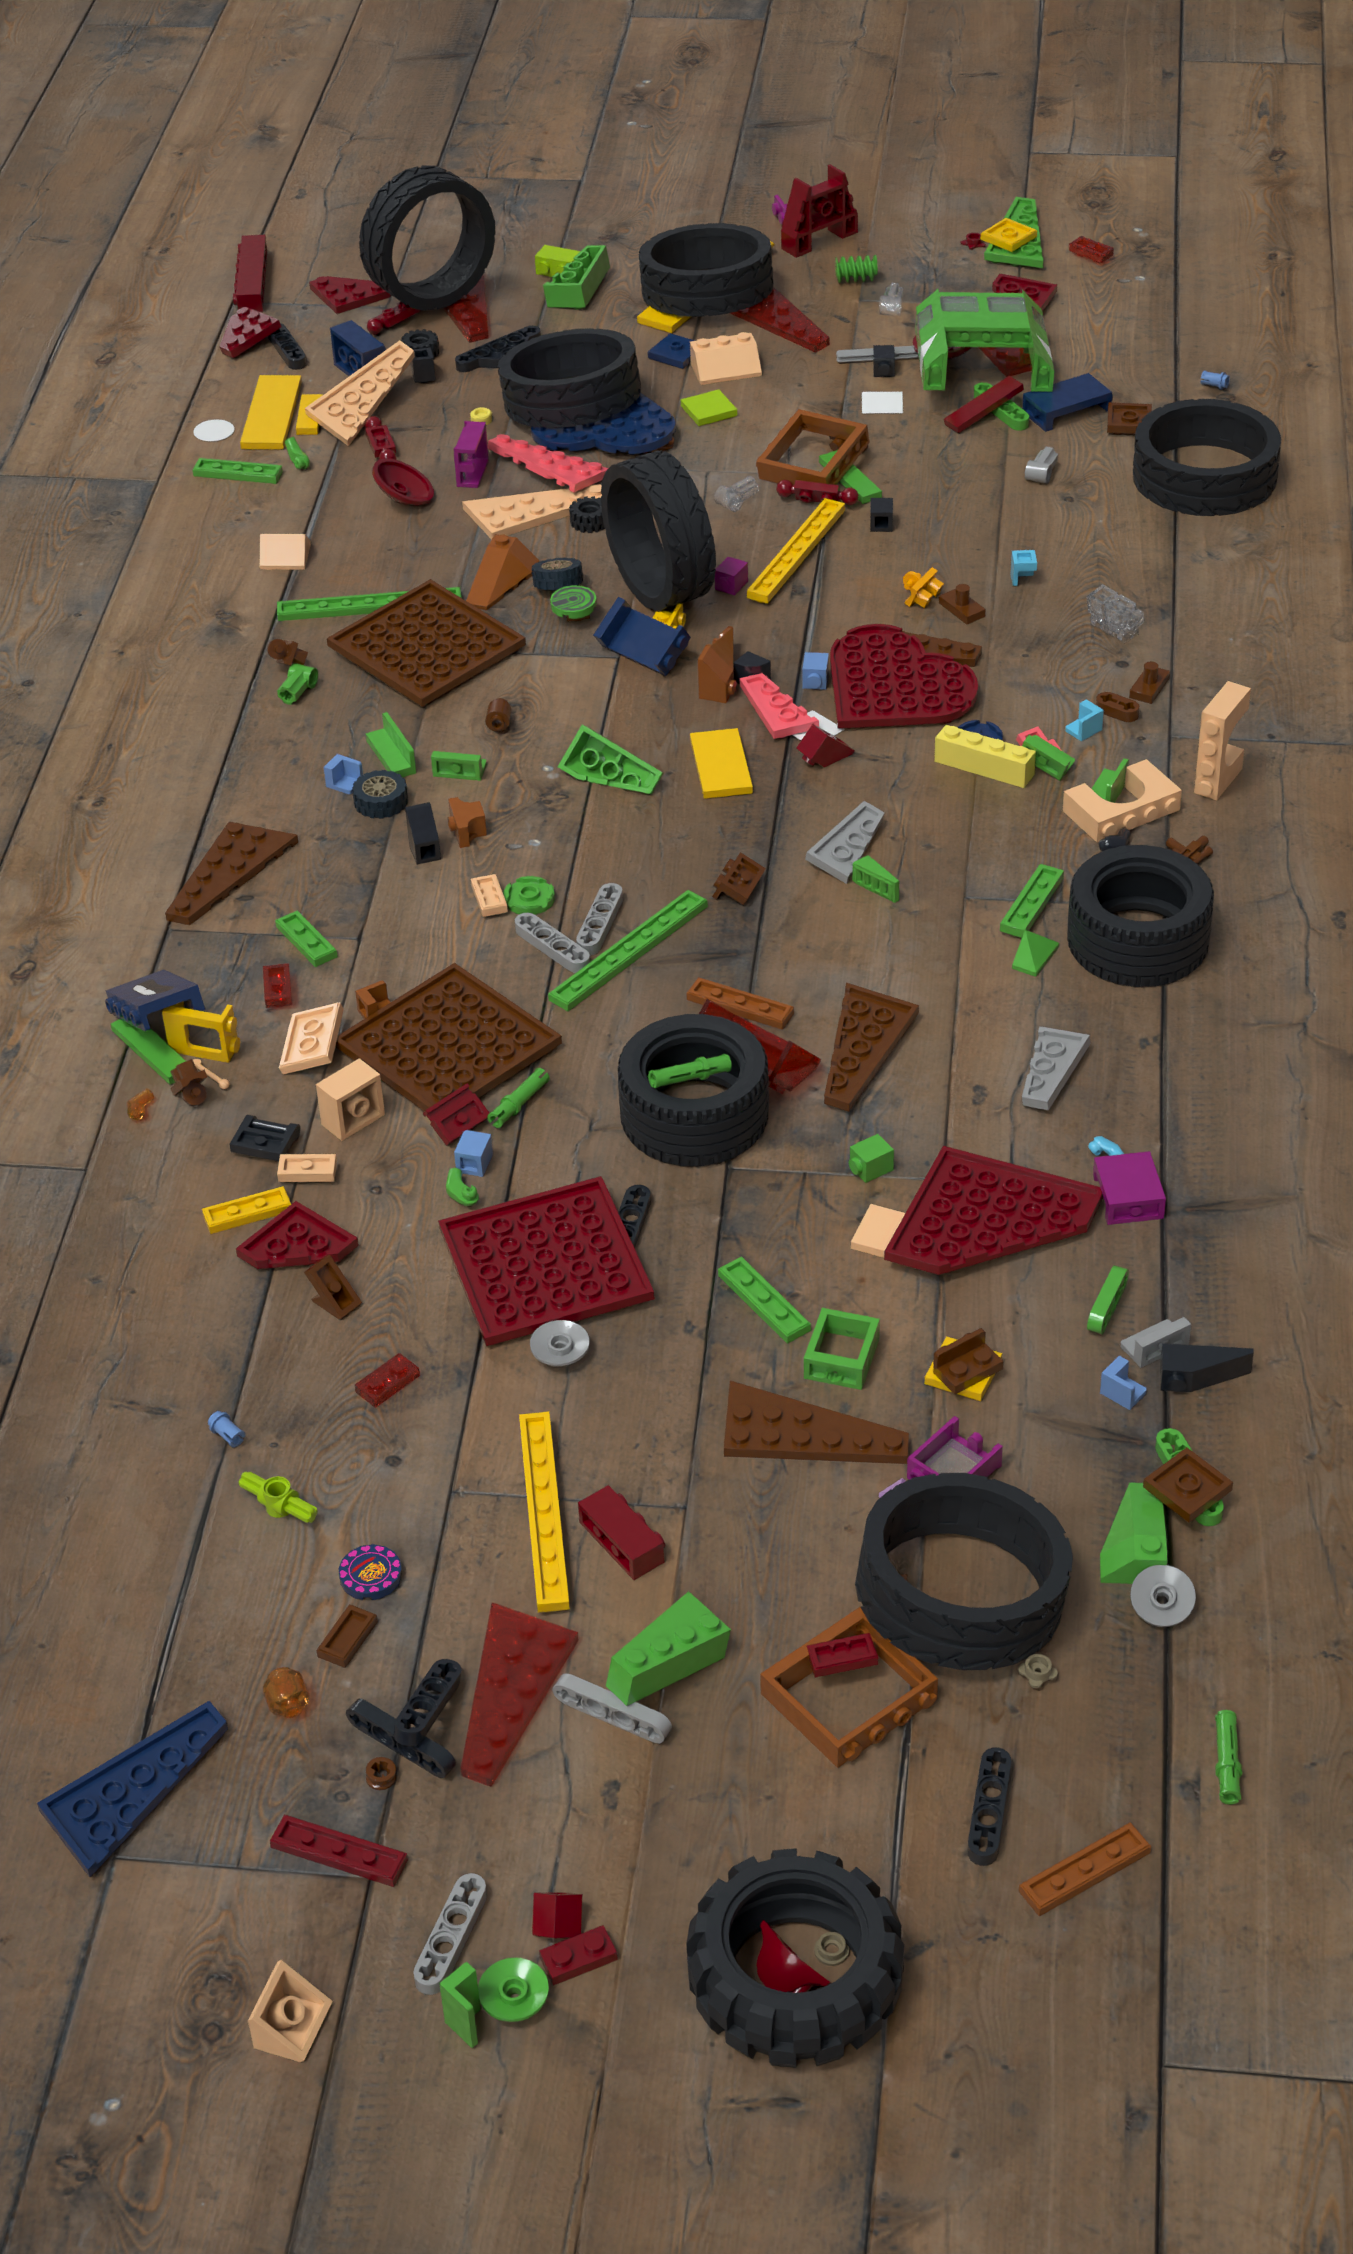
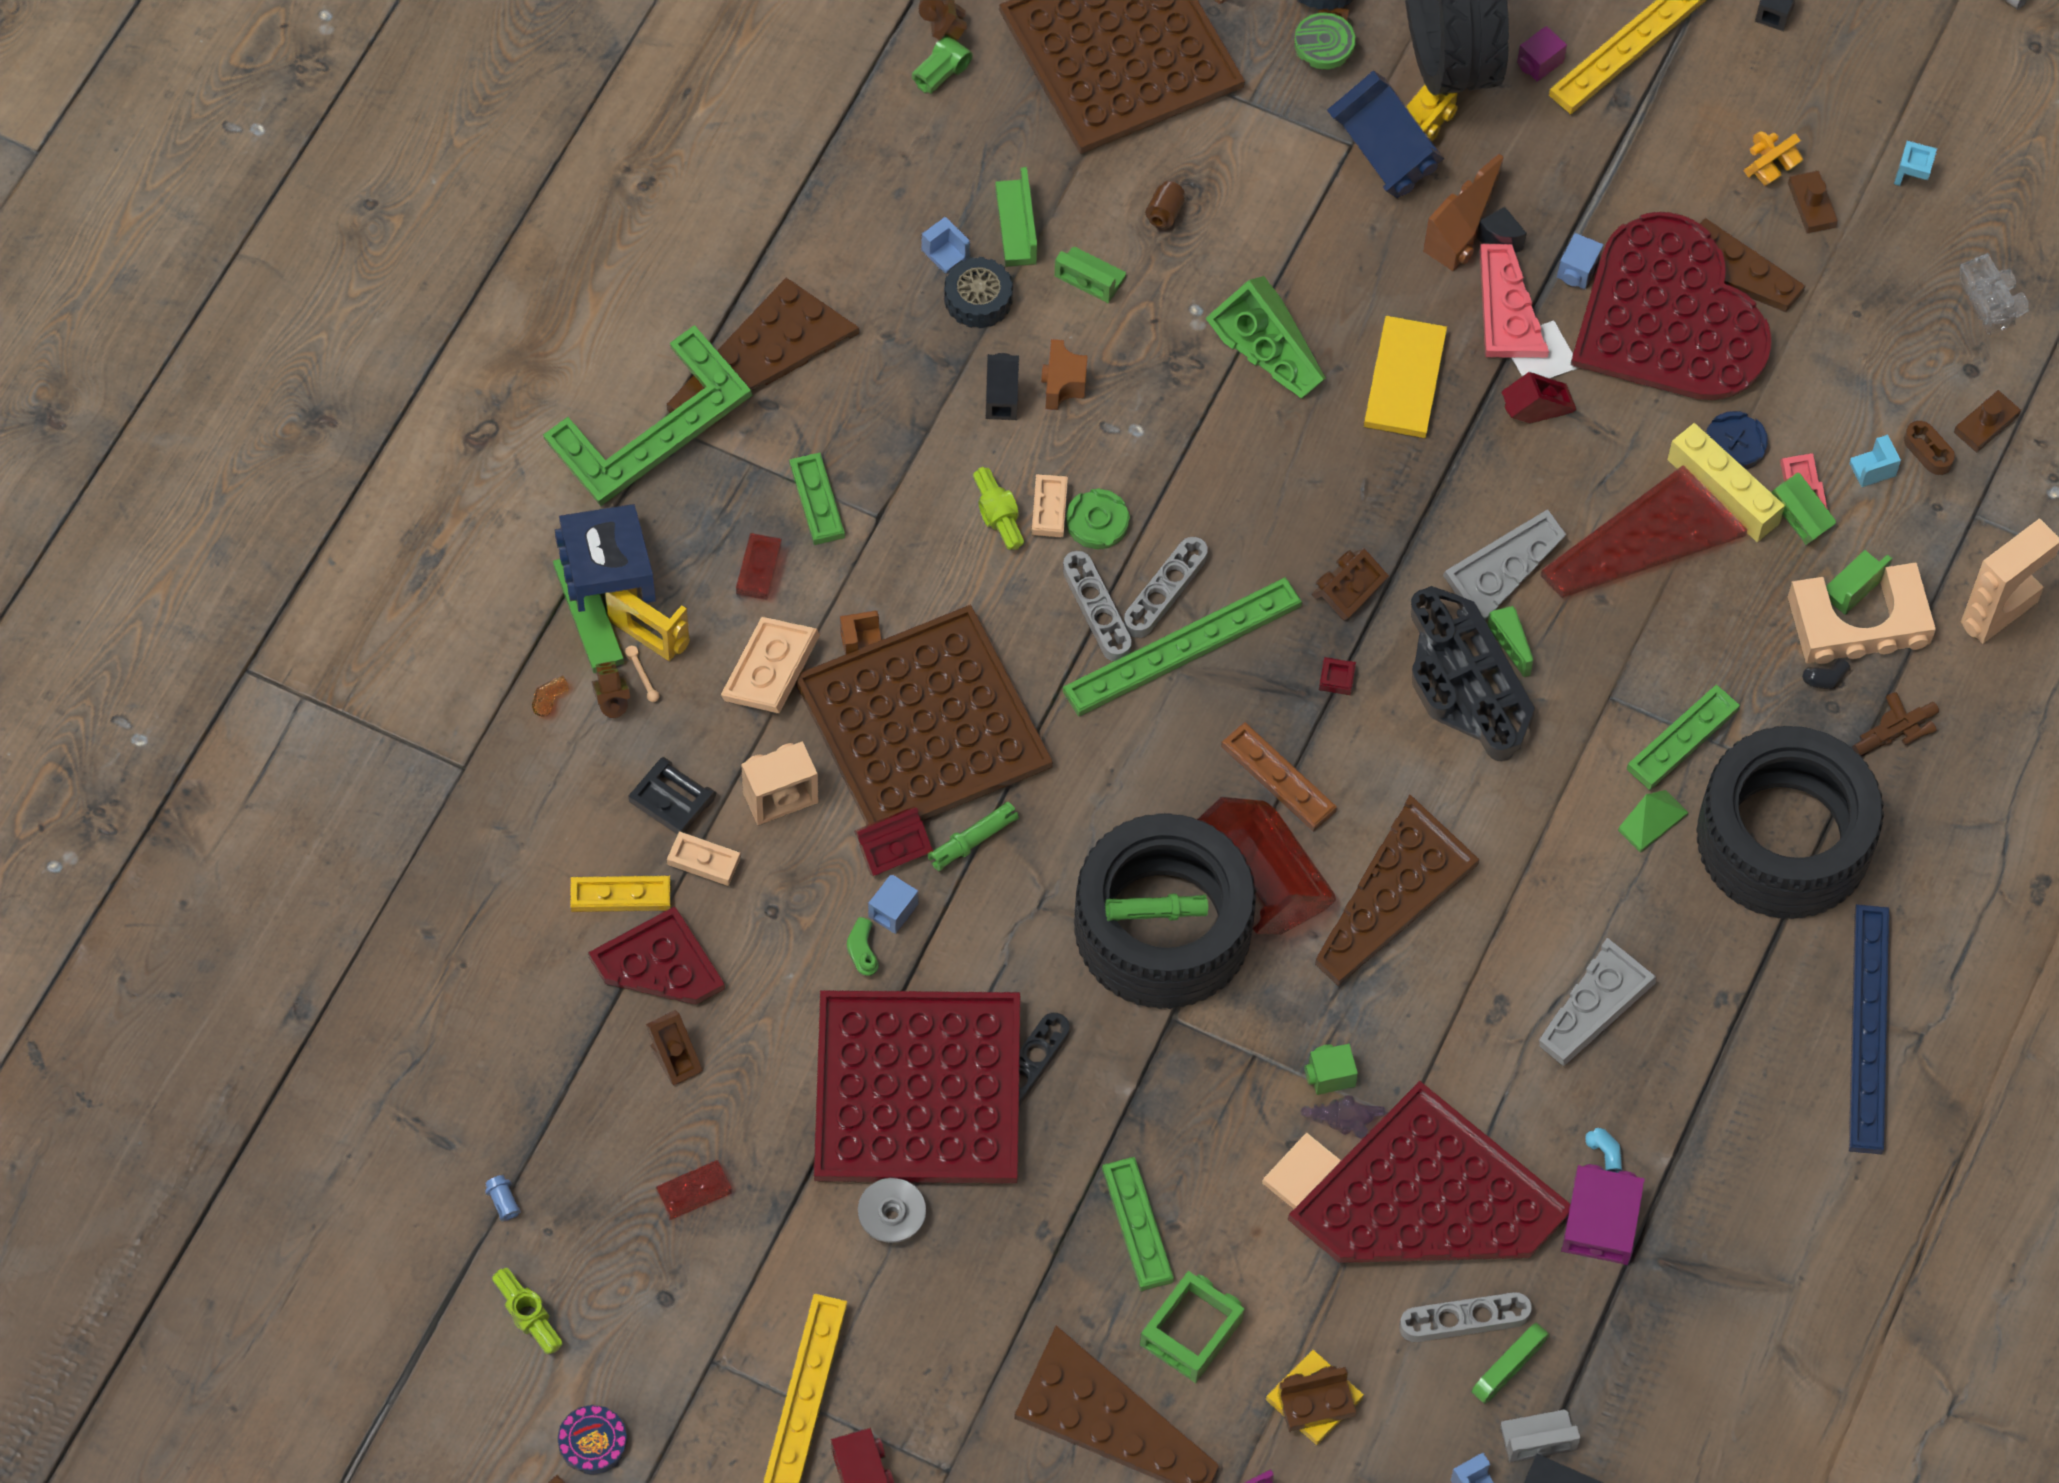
camera: 15 degrees right, 20 degrees up
(204, 891) = (608, 477): none -> bright green plate
(450, 906) = (998, 508): none -> lime axle
(755, 935) = (1337, 676): none -> dark red tile
(844, 908) = (1459, 674): none -> black connector
(893, 1184) = (1345, 1115): none -> clear purple piece
(943, 797) = (1658, 527): none -> clear red wing
(1020, 1301) = (1466, 1322): none -> light grey beam
(1265, 1030) = (1869, 1029): none -> dark blue tile

